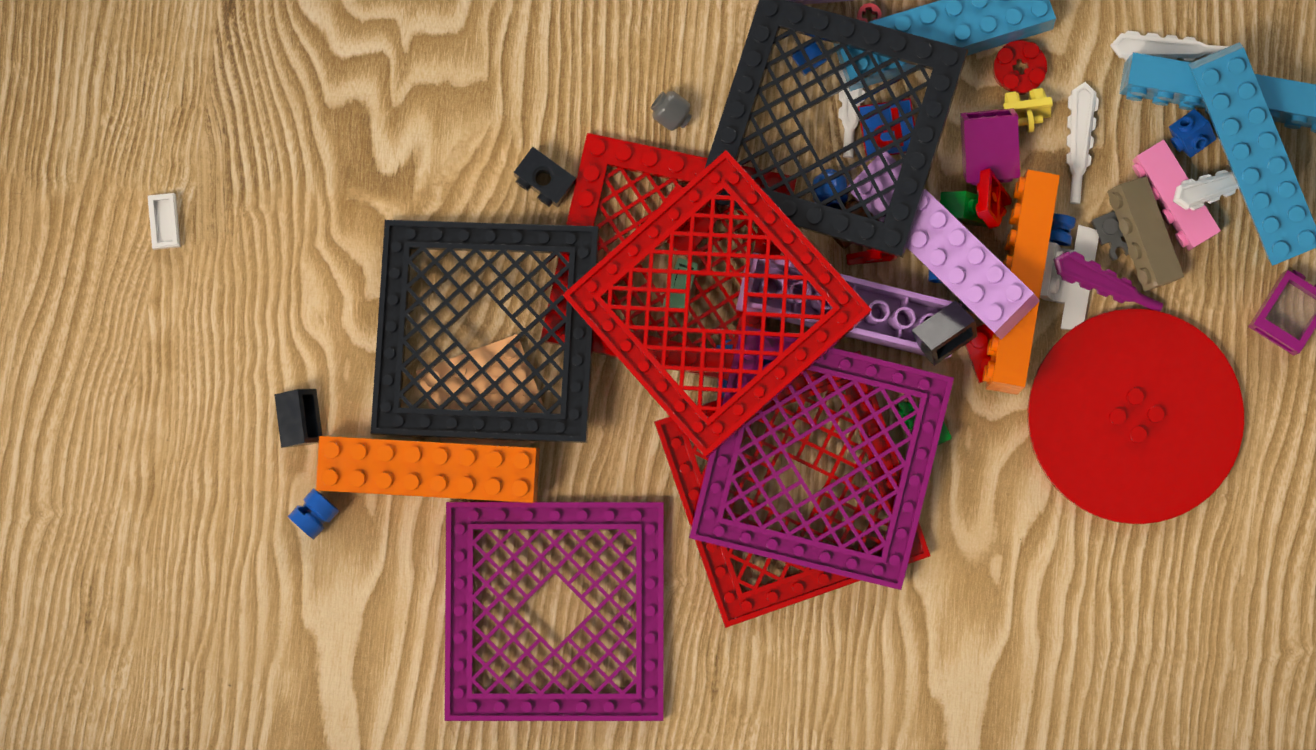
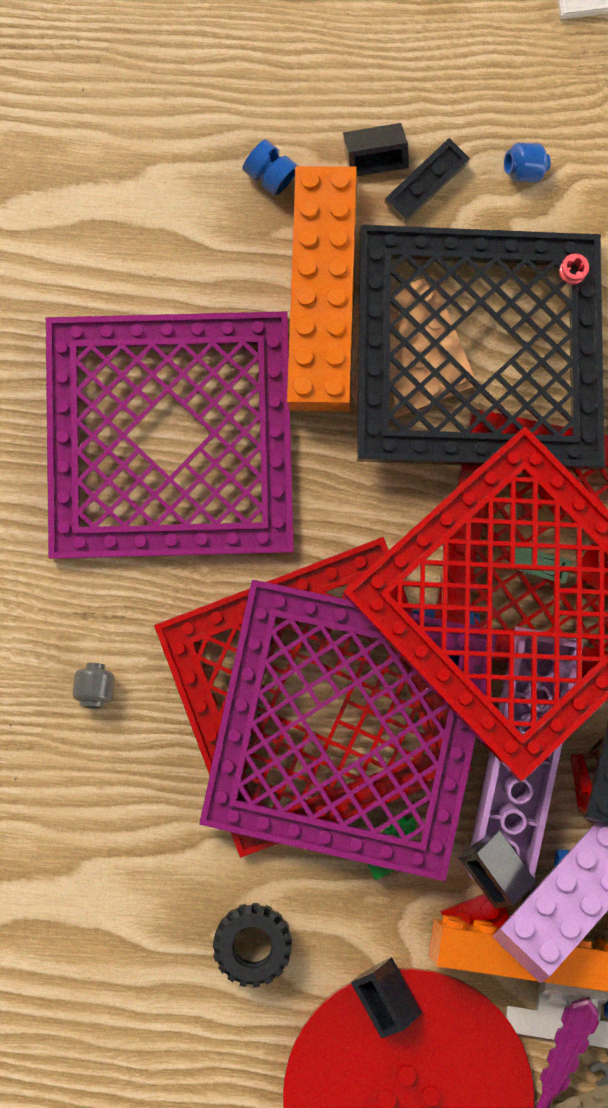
camera: 90 degrees right, 0 degrees up
(316, 282) = (526, 162): none -> blue head
(328, 372) = (427, 180): none -> black plate
(410, 249) = (572, 259): none -> coral bush
(778, 682) = (93, 686): none -> dark grey head
(1028, 546) = (252, 972): none -> black tyre
(1052, 431) = (386, 998): none -> black brick

